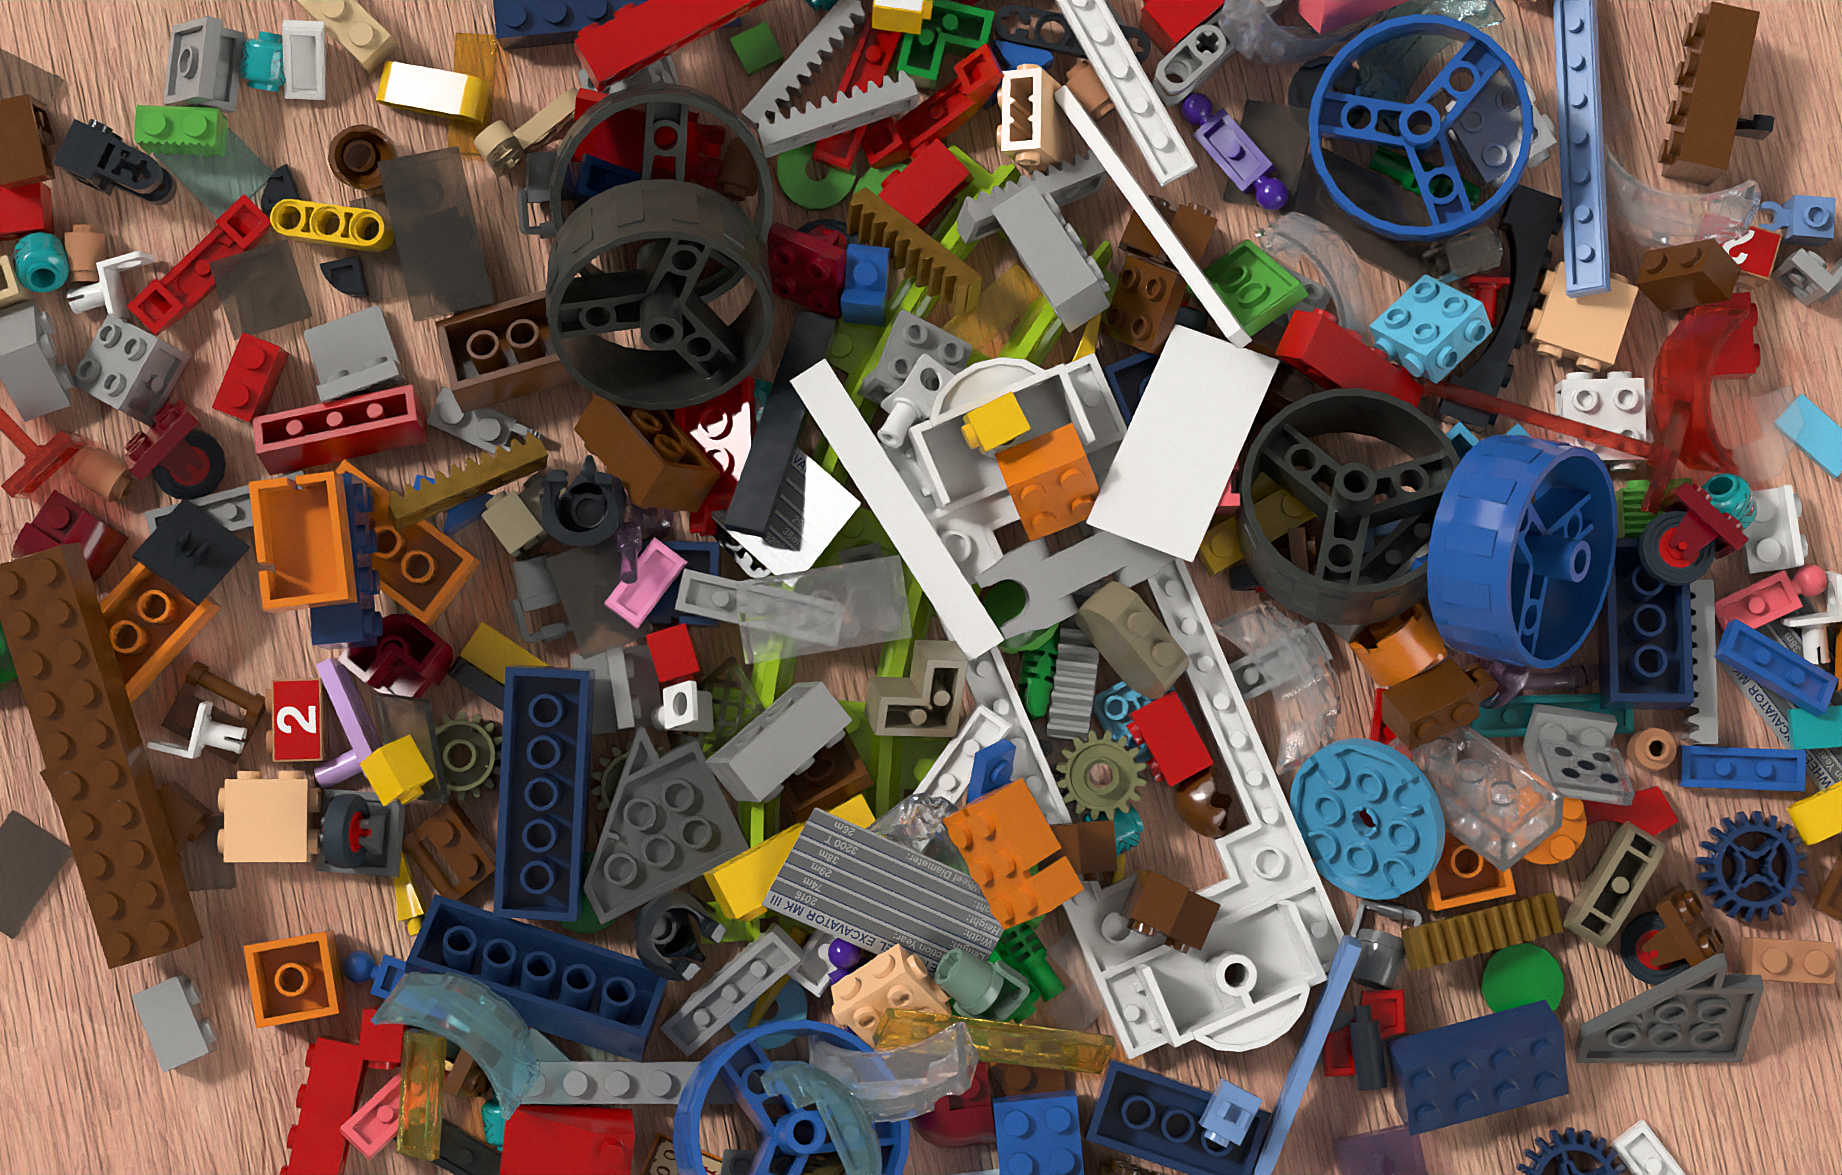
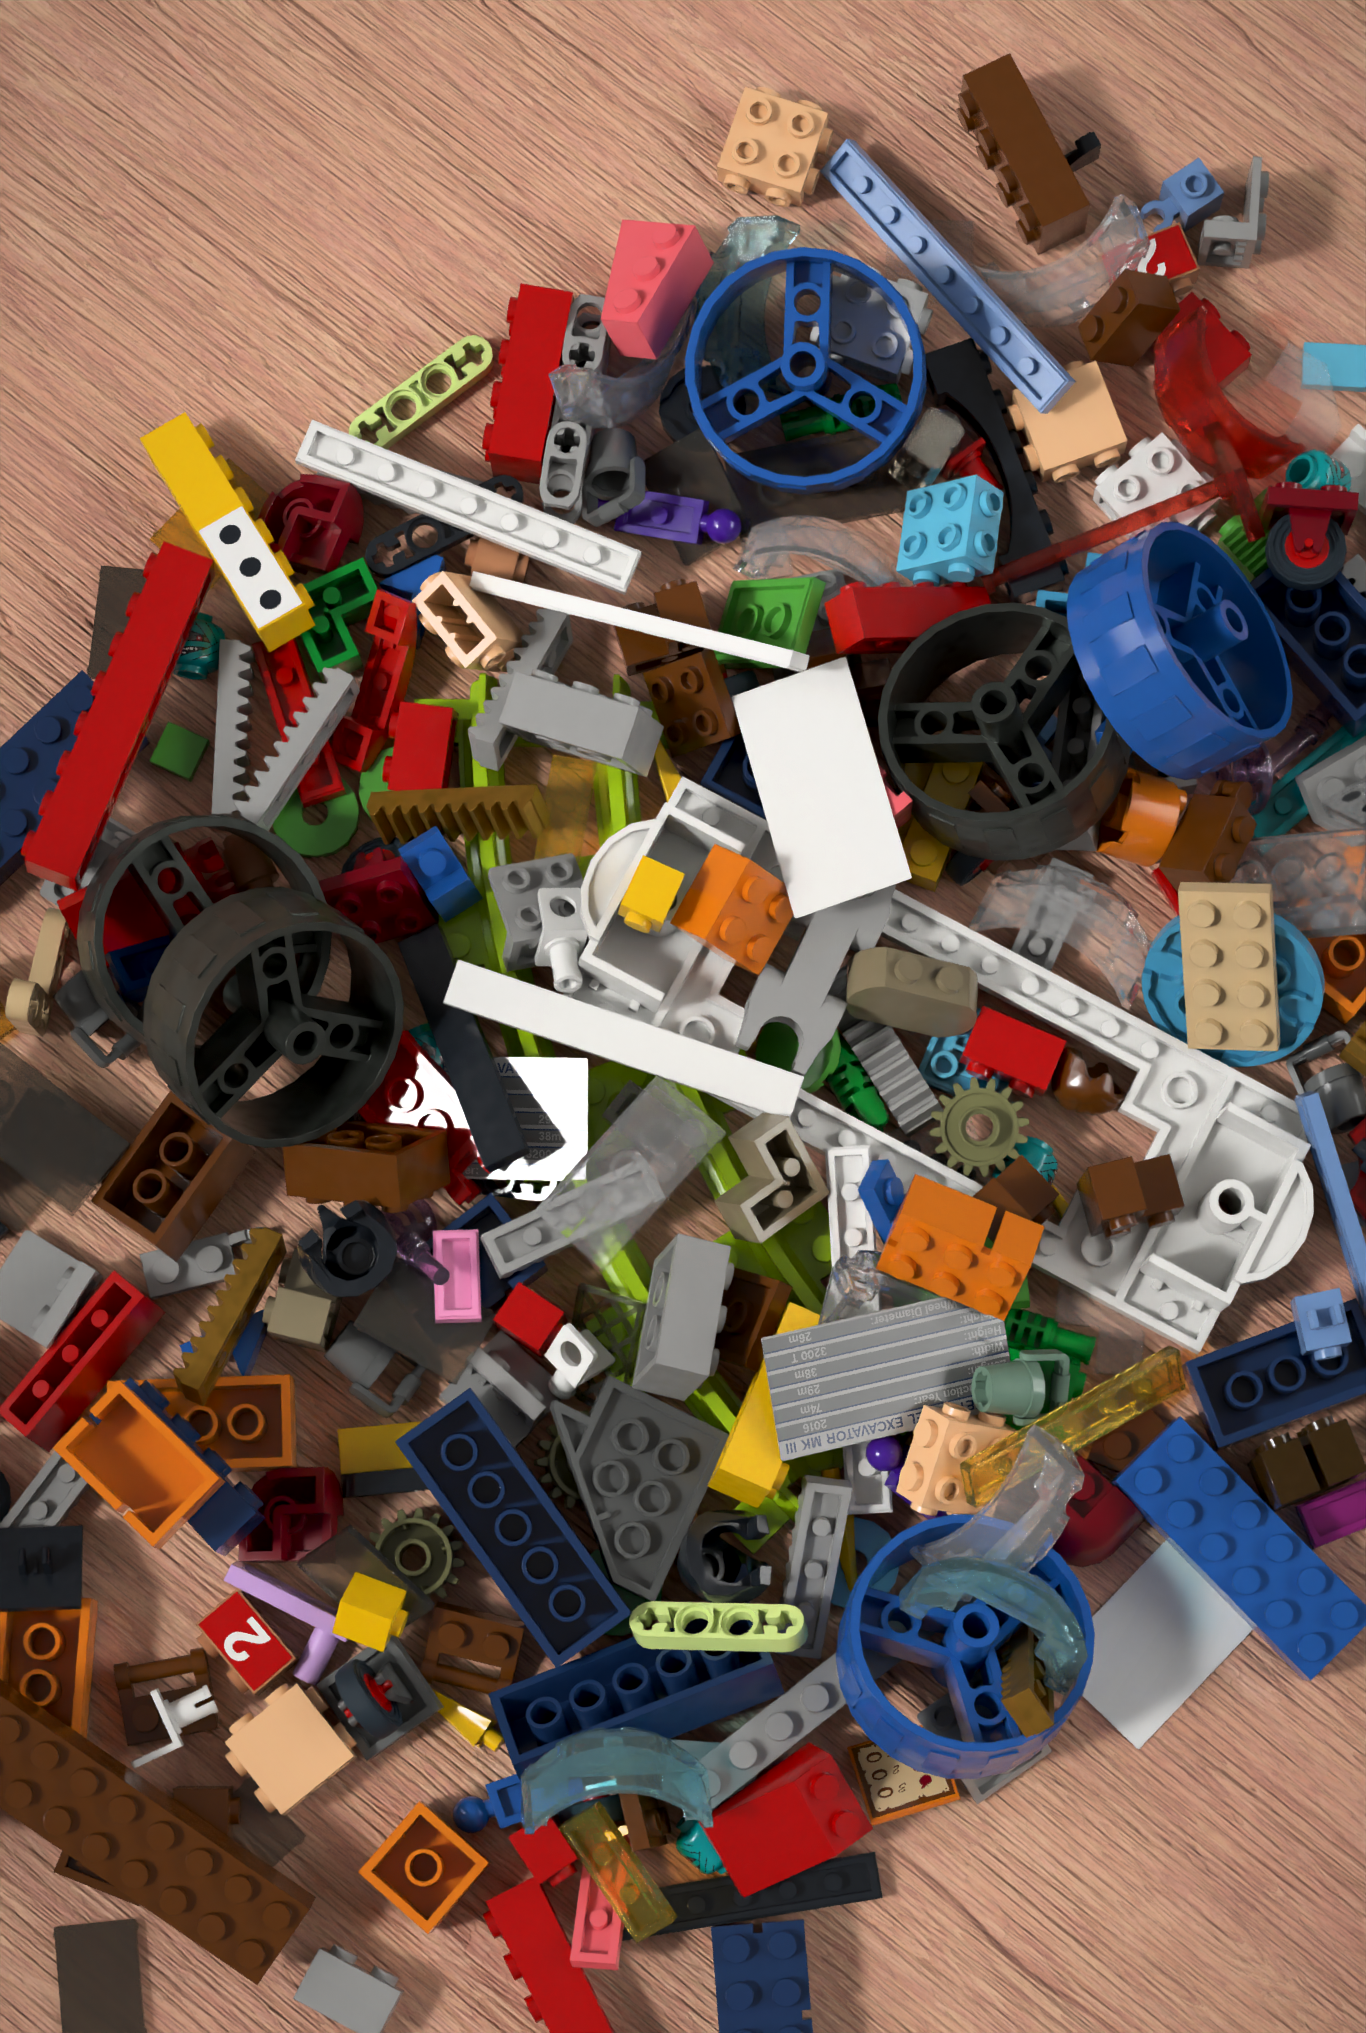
camera: 35 degrees left, 5 degrees down
(635, 975) = (720, 1619): none -> yellowish green beam
(1222, 94) = (612, 475): none -> dark grey piece
(1373, 805) = (1229, 966): none -> tan plate

